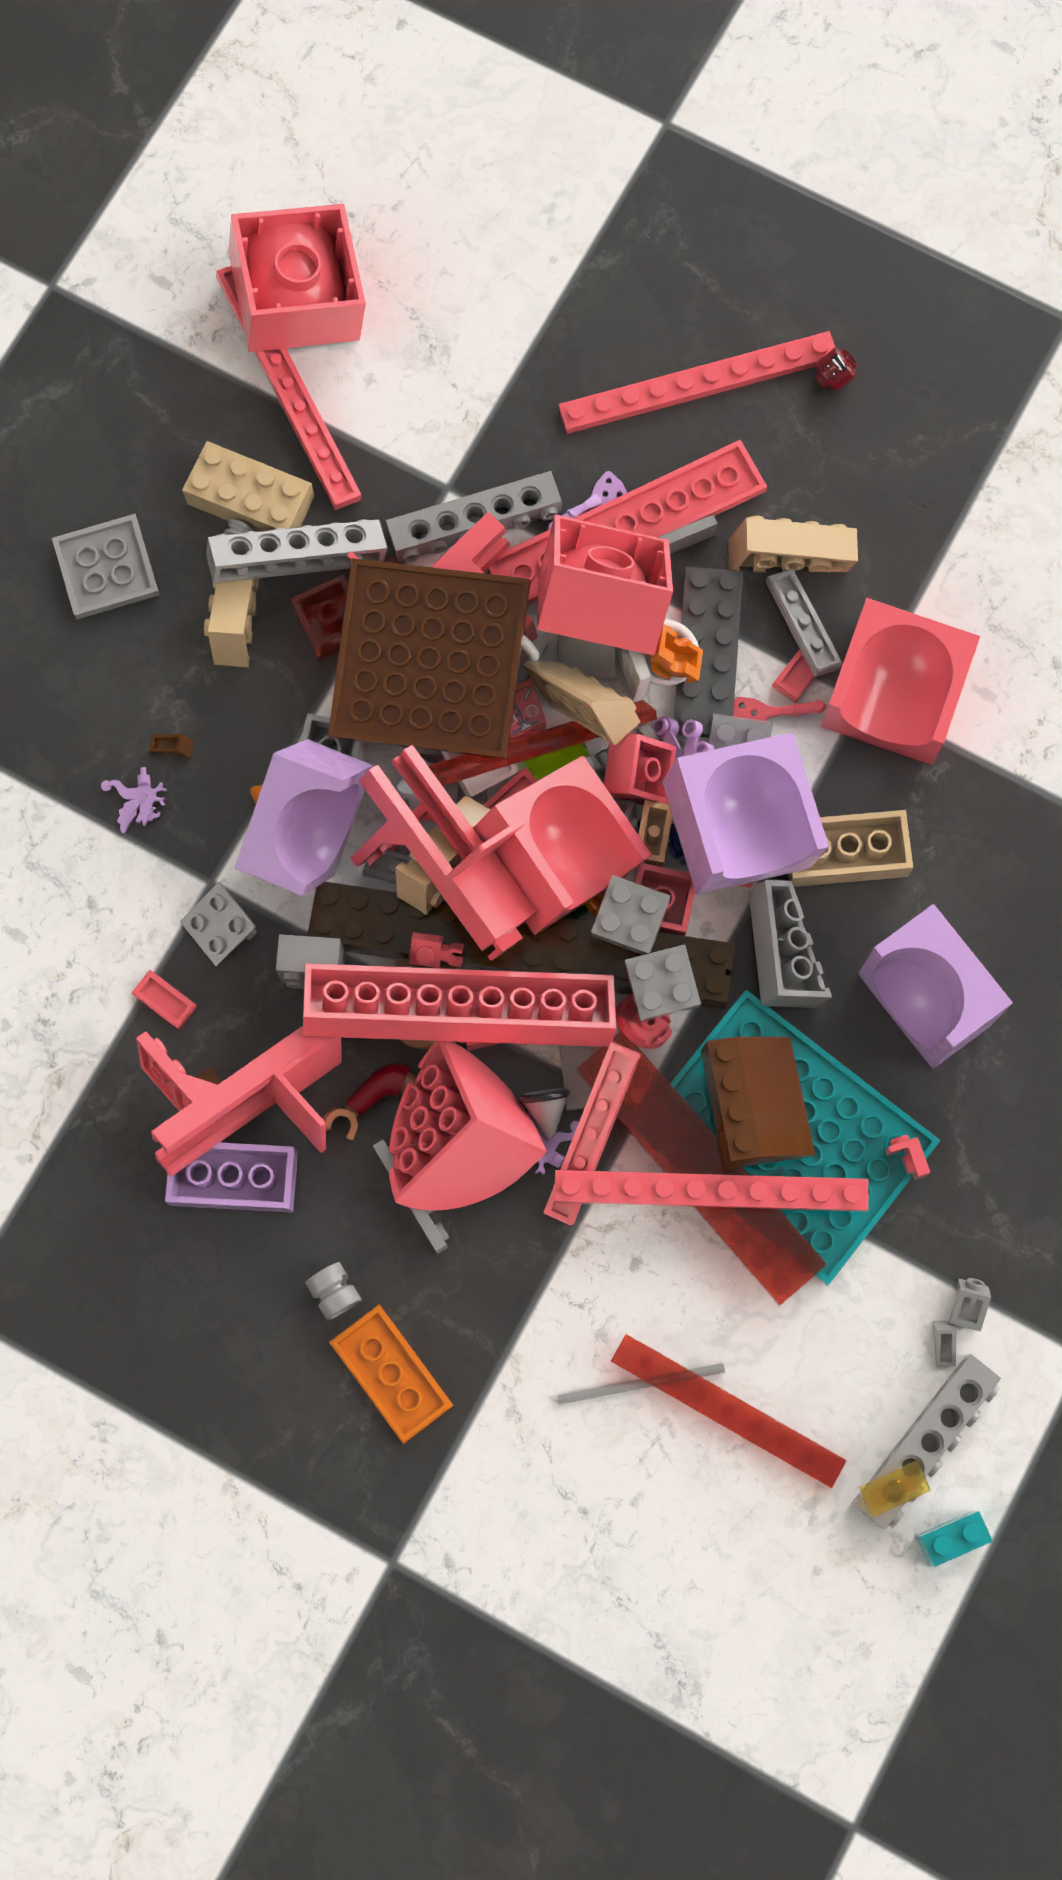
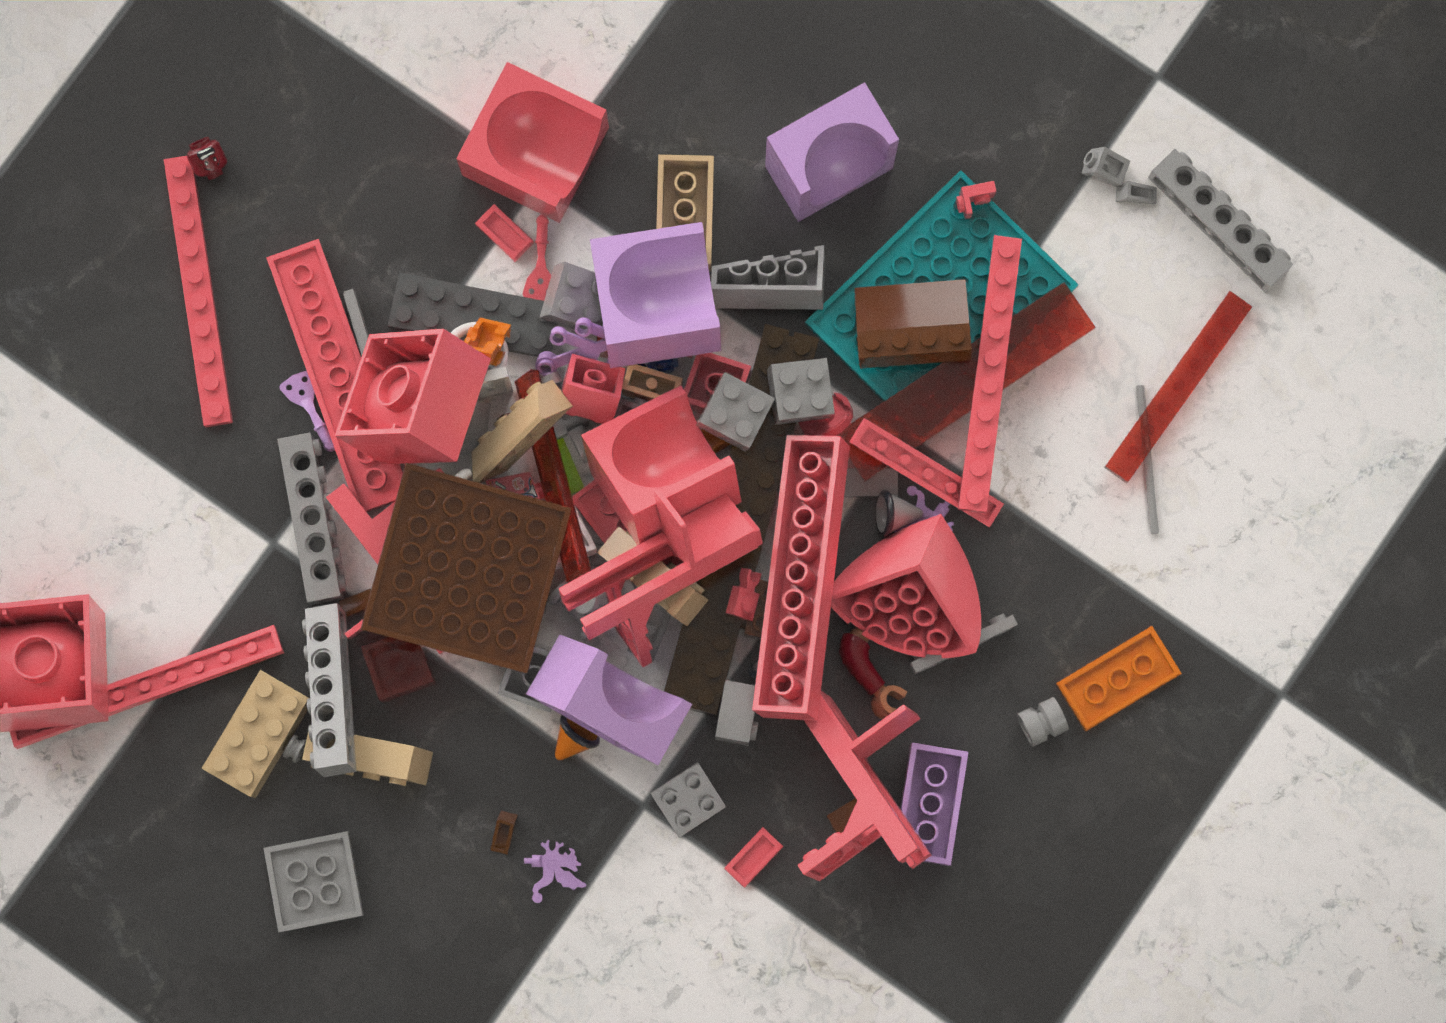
camera: 85 degrees left, 5 degrees up
(792, 545) = (382, 223): tan wedge -> none
(804, 623) = (458, 223): light grey tile -> none
(894, 1488) = (1262, 251): clear yellow plate -> none
(953, 1538) = (1304, 209): teal brick -> none

